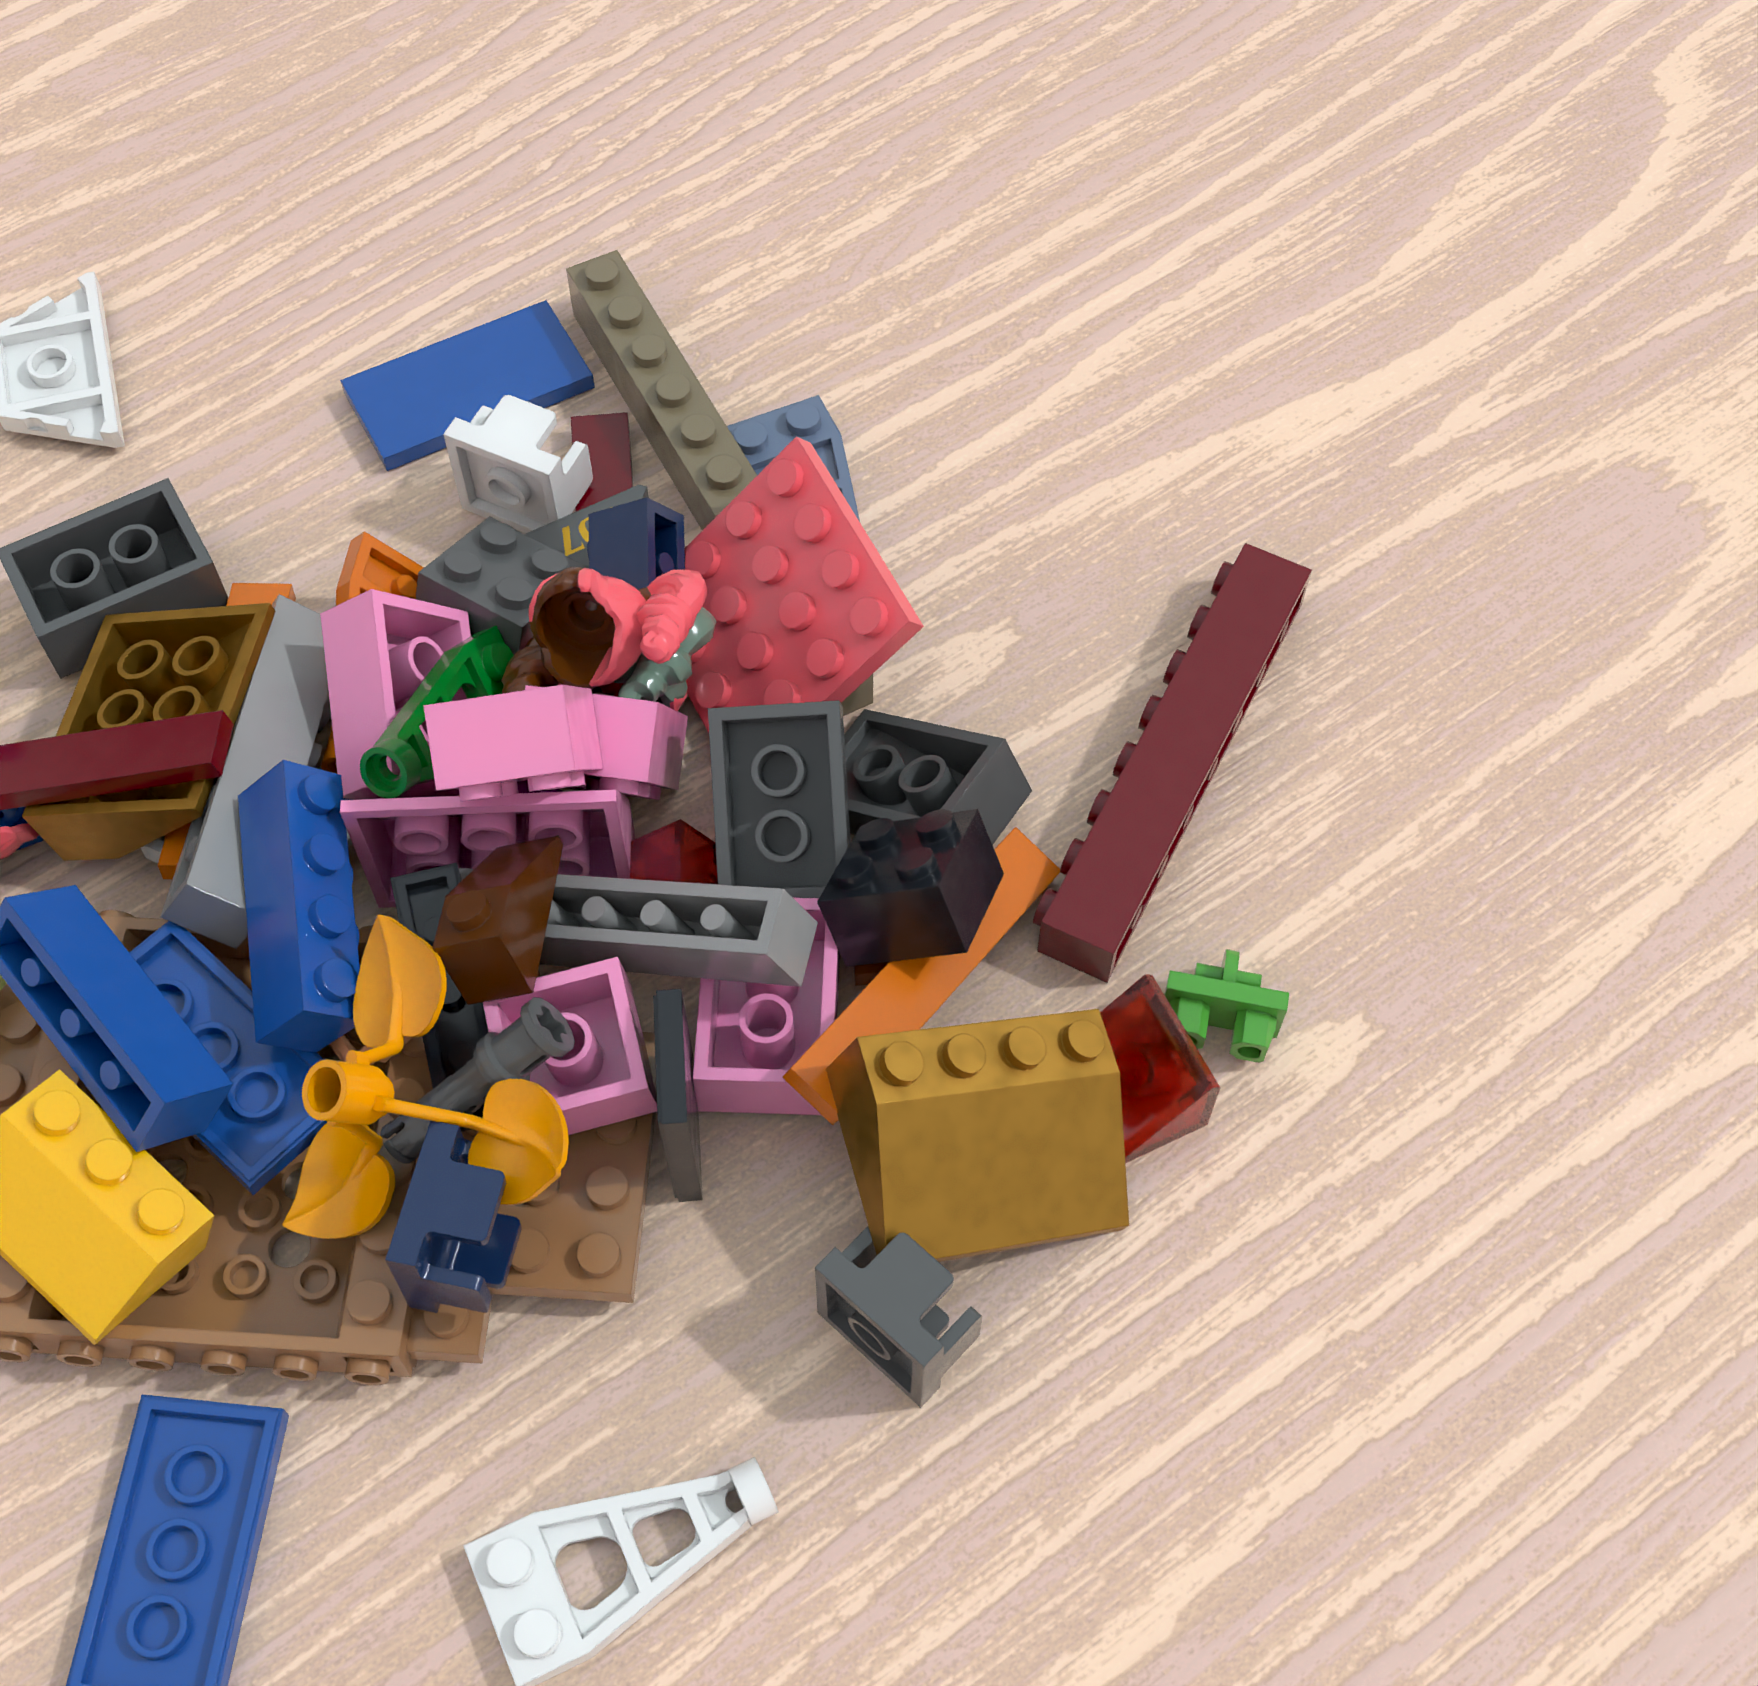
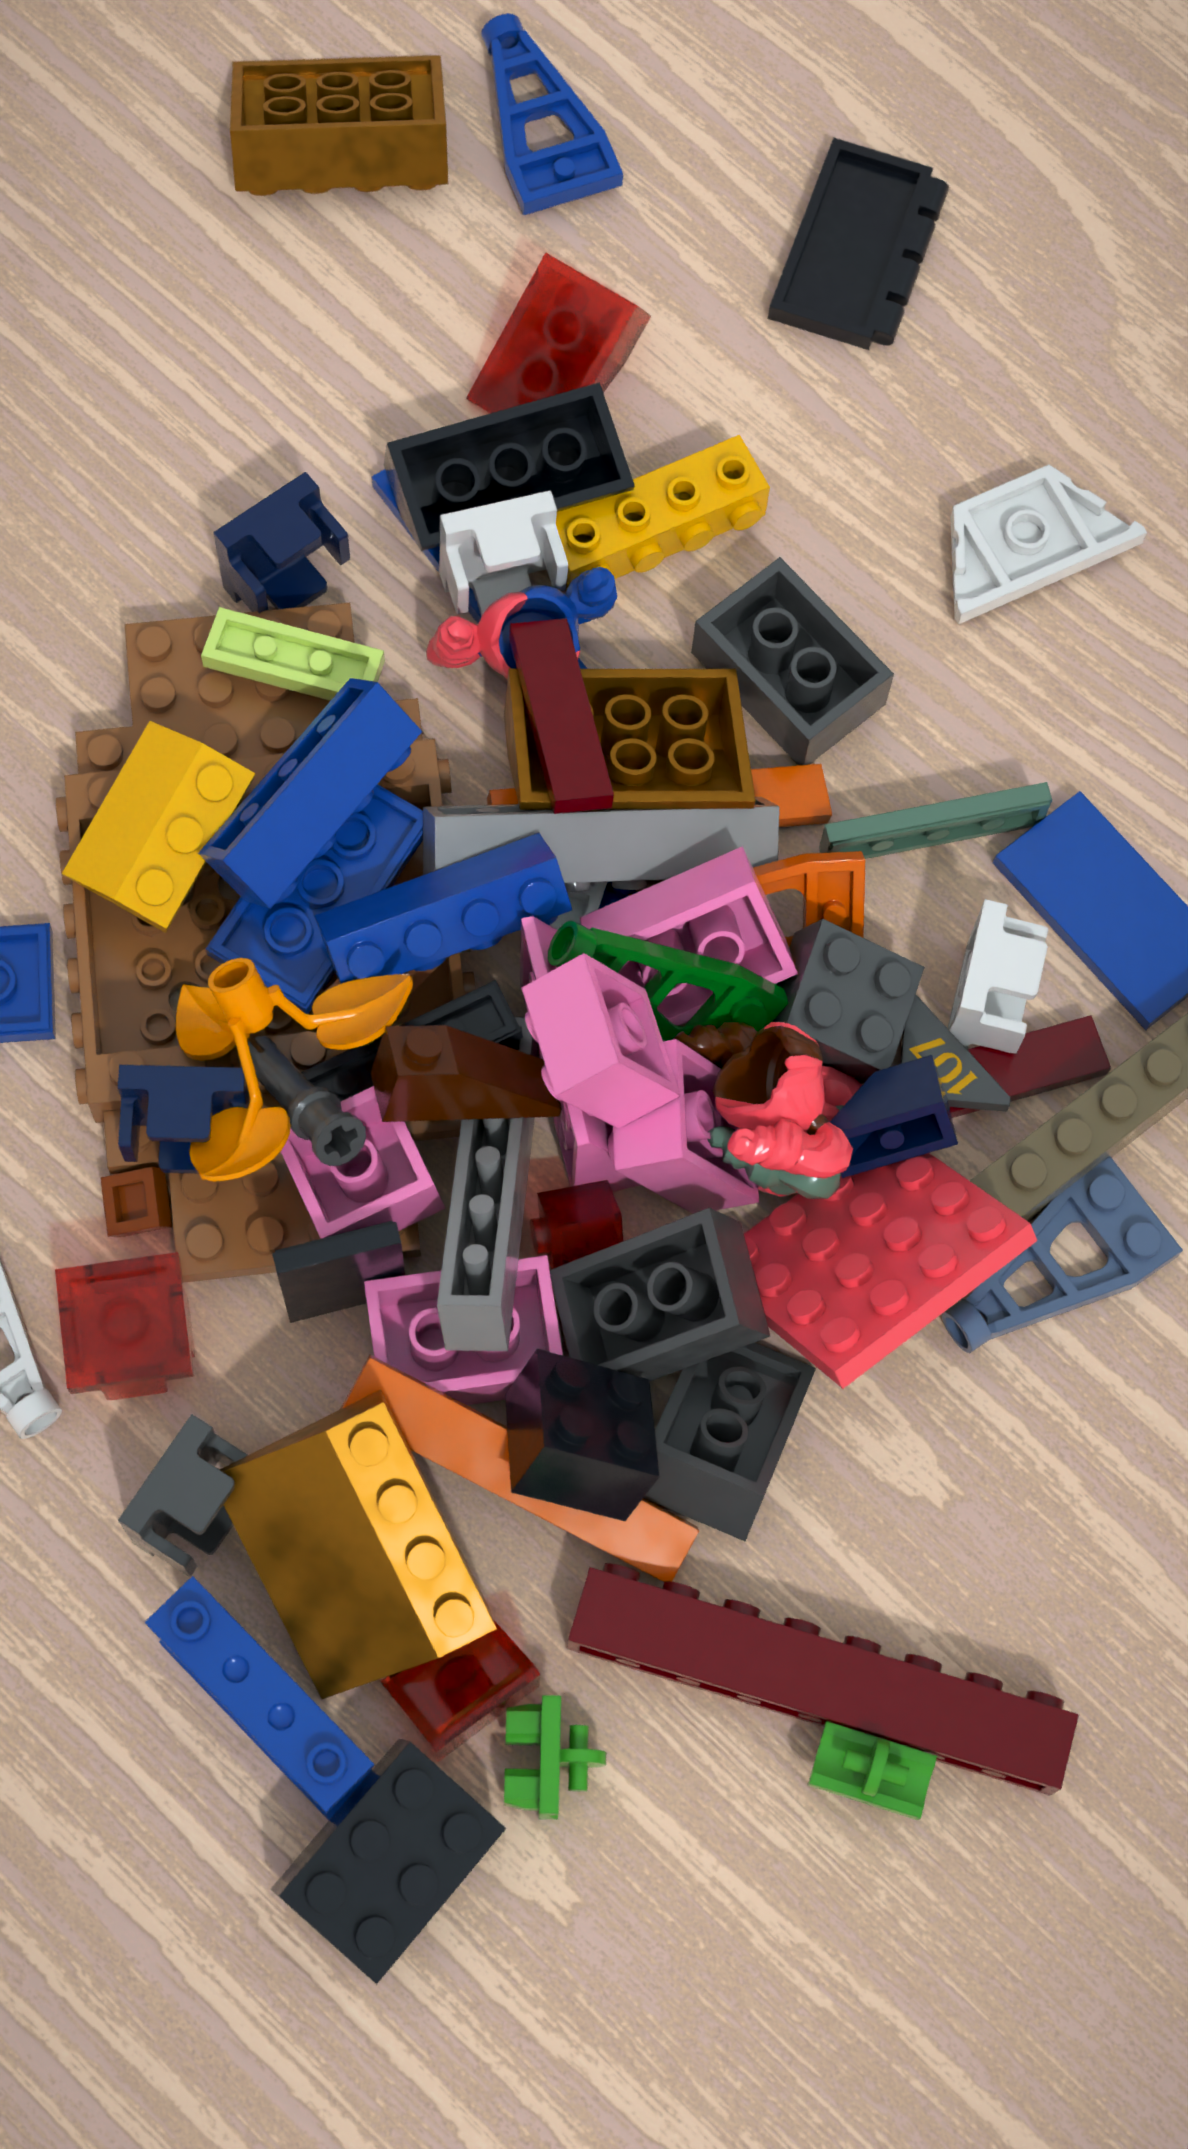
camera: 75 degrees right, 10 degrees up
(333, 496) = (939, 822): none -> sand green tile
(525, 1336) = (136, 1202): none -> dark orange plate
(675, 1360) = (125, 1326): none -> clear red panel
(1141, 1256) = (260, 1697): none -> blue fence
(1271, 725) = (872, 1770): none -> bright green hips
(1316, 1168) = (388, 1859): none -> black brick

